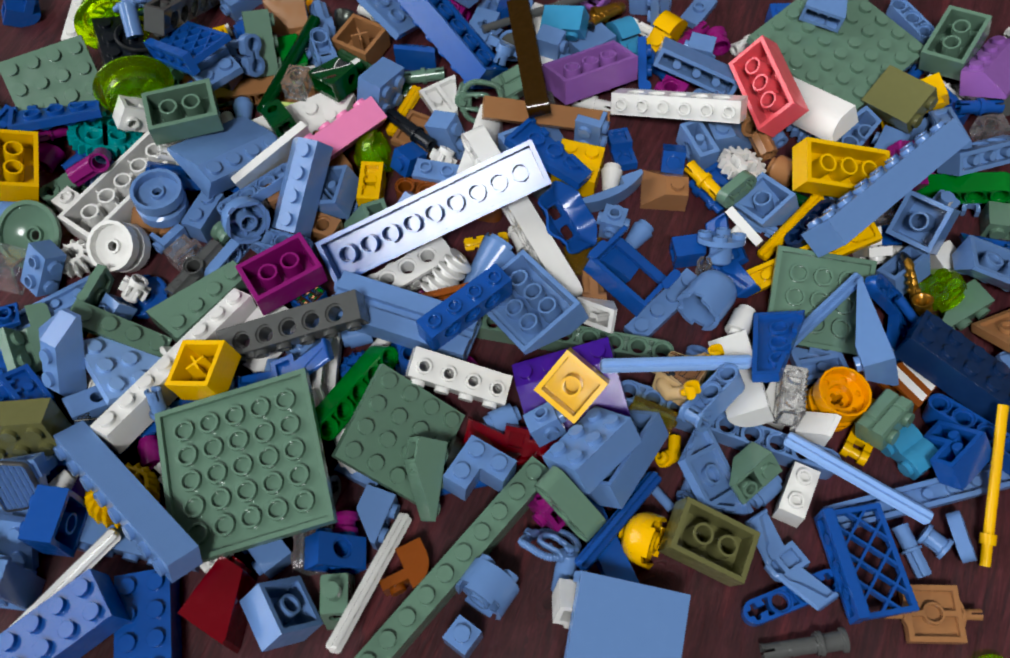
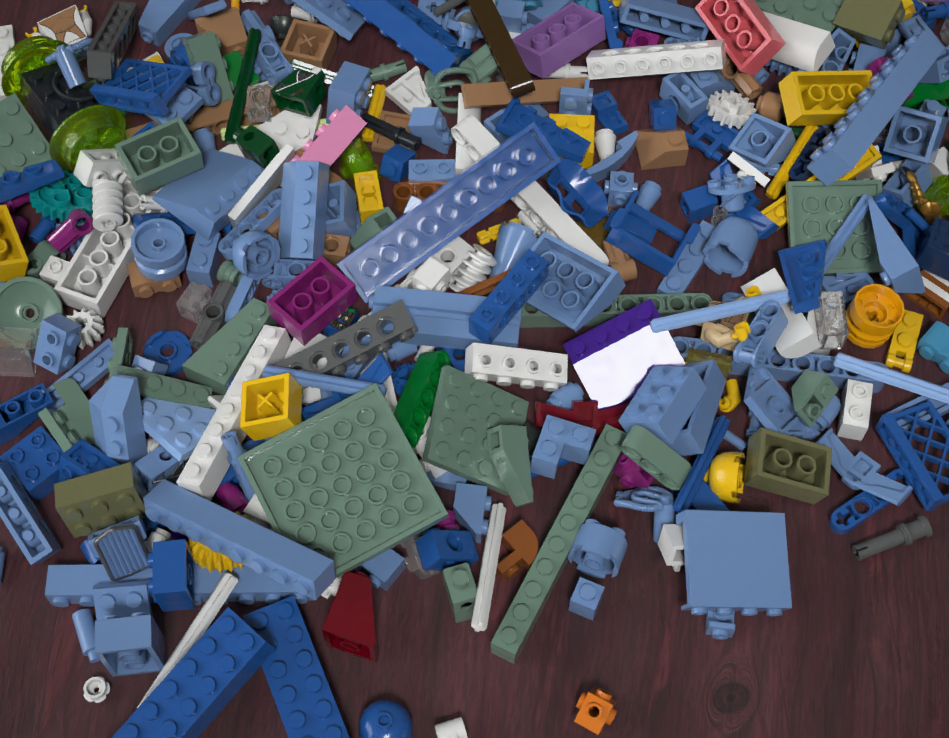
camera: 15 degrees left, 0 degrees up
(118, 246) = (115, 309): white wheel -> none
(126, 148) = (107, 204): none -> white piece
(134, 288) = (160, 345): white gear -> none
(172, 235) = (170, 297): medium blue bracket -> none
(260, 354) = (322, 381): none -> medium blue axle
(280, 613) = (413, 612): medium blue brick -> none
(402, 272) = (432, 276): none -> white brick
(416, 56) = (371, 52): blue slope -> none
(443, 154) = (431, 151): white gear -> none
(545, 424) = (611, 391): medium blue brick -> none
(572, 385) = (630, 349): yellow brick -> none
(600, 312) = (637, 280): white slope -> none
(702, 179) = (699, 130): yellow pin -> none
(736, 189) = (732, 134): sand green beam -> none
(740, 319) = (766, 259): white brick -> none
(817, 427) = (861, 343): white slope -> none
(885, 419) = (919, 325): sand green brick -> none

